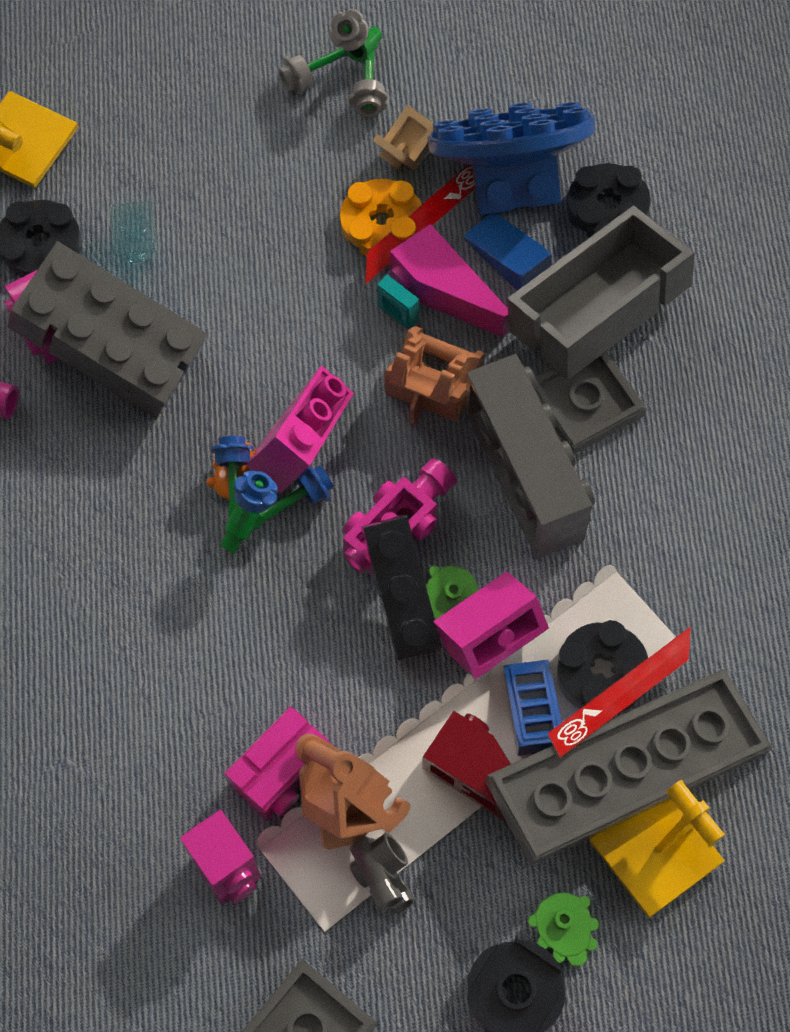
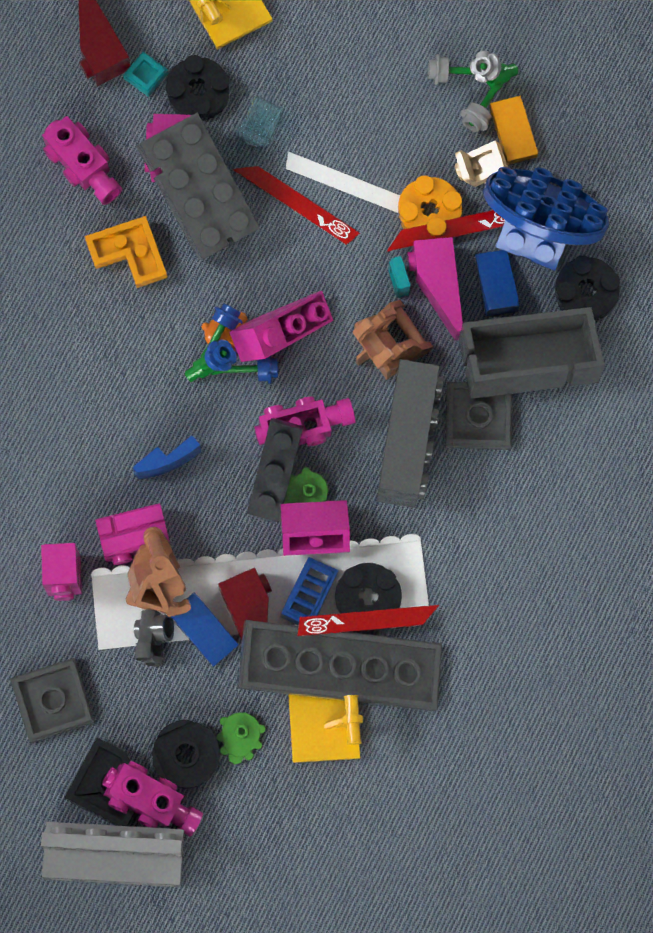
camera: 25 degrees right, 10 degrees up
(67, 439) = (130, 242): none -> light orange plate
(234, 294) = (298, 203): none -> red sticker
(259, 662) = (158, 463): none -> blue slope
(265, 246) = (342, 182): none -> white sticker
(412, 85) = (513, 130): none -> light orange tile
(441, 827) = (205, 631): none -> blue slope

